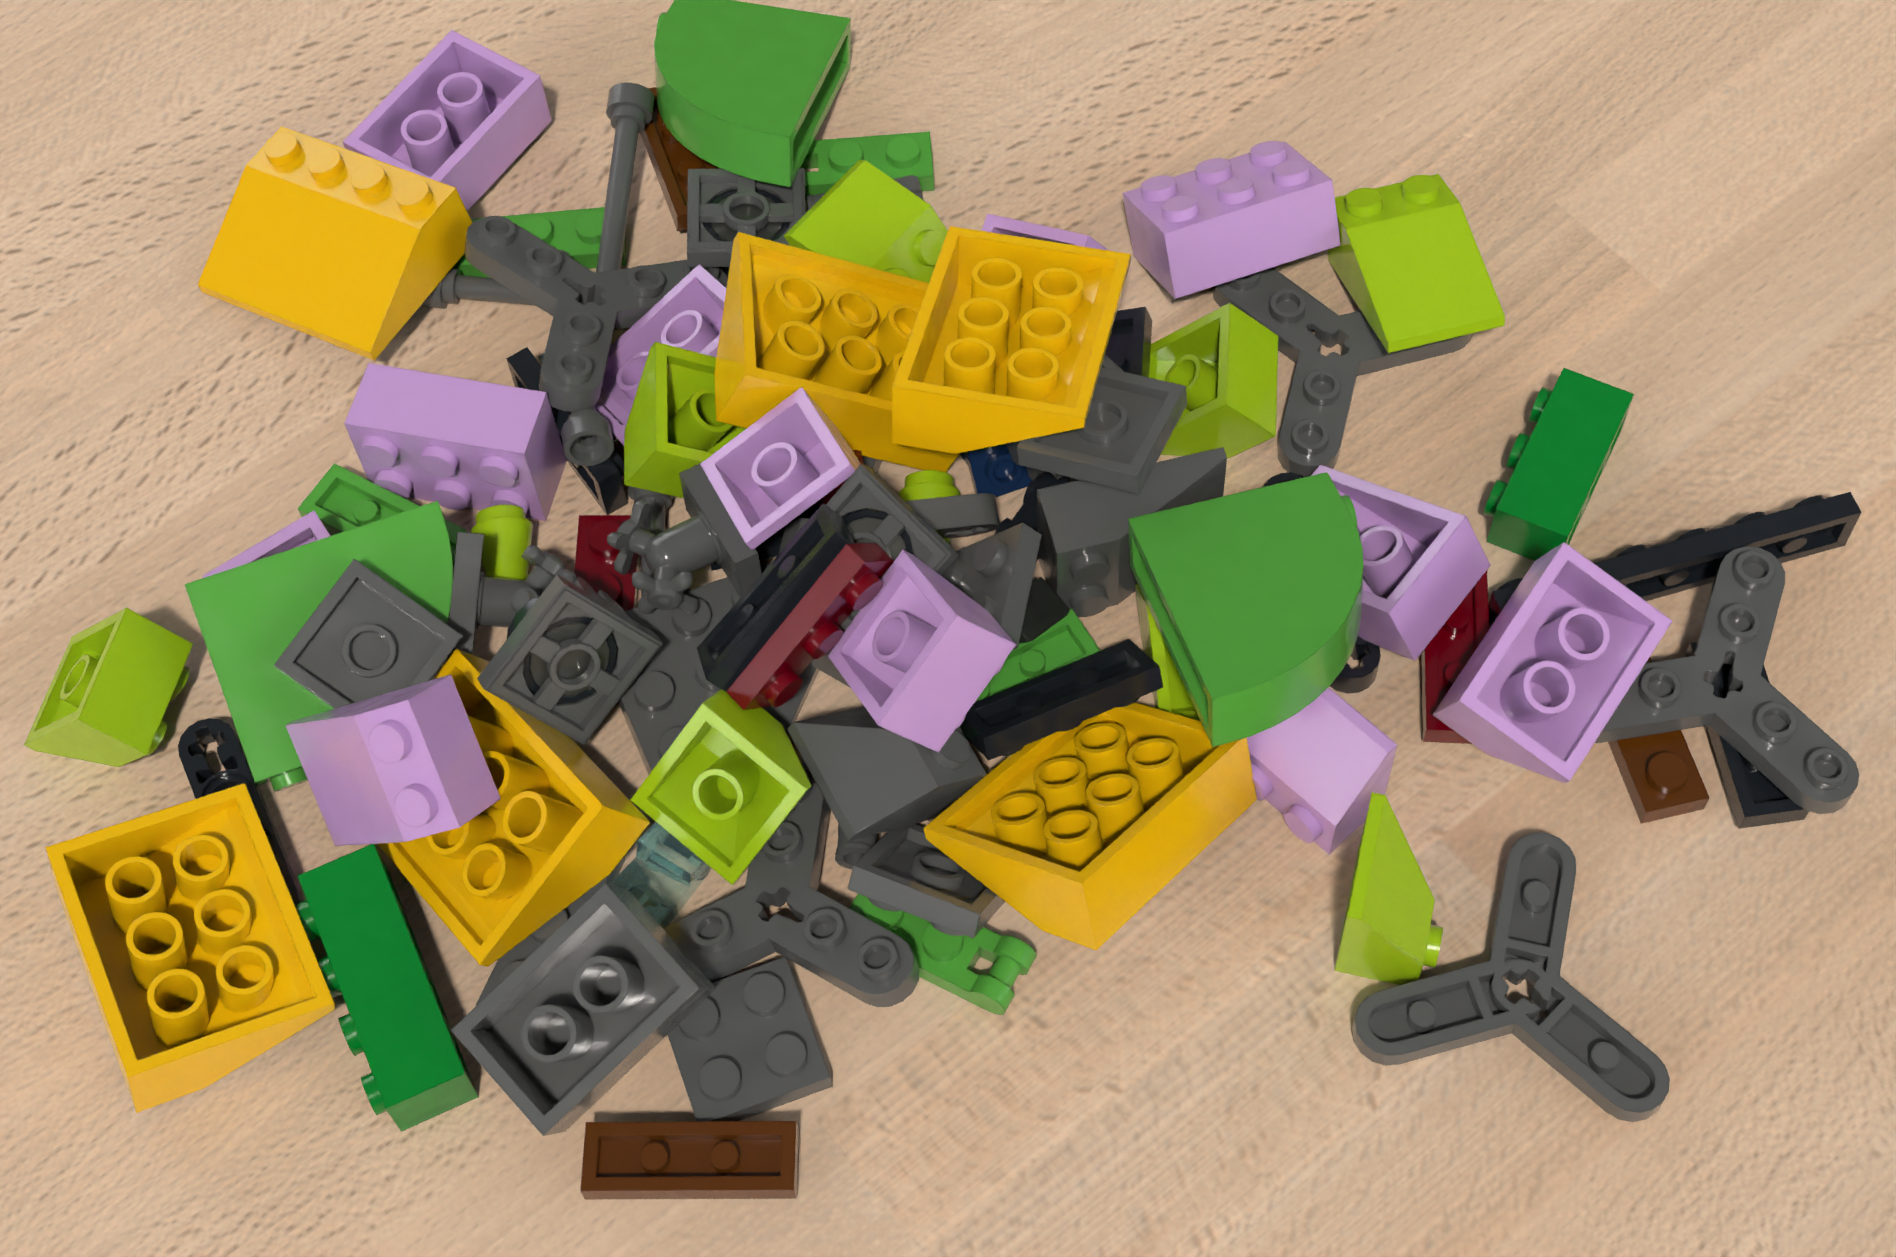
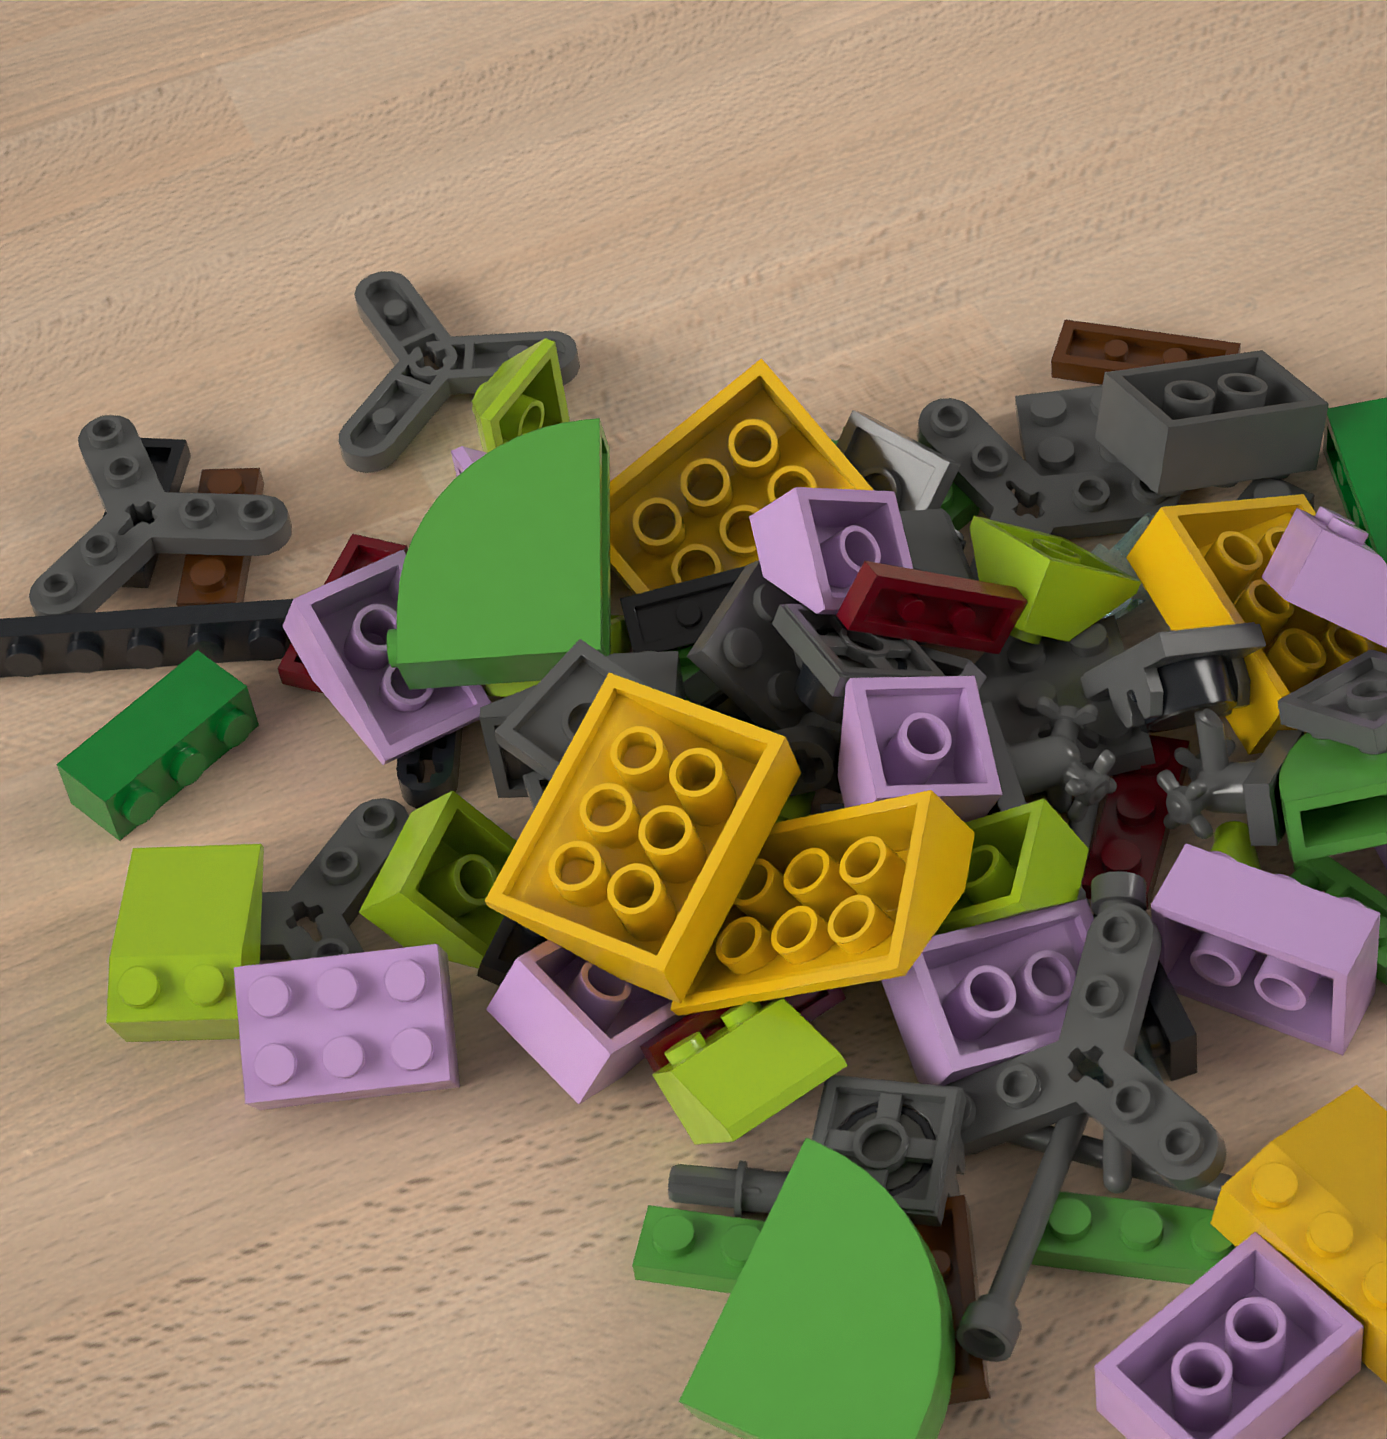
camera: 160 degrees left, 10 degrees down
(772, 597) = (957, 632): black plate -> none
(1553, 666) = (285, 520): lavender slope -> none

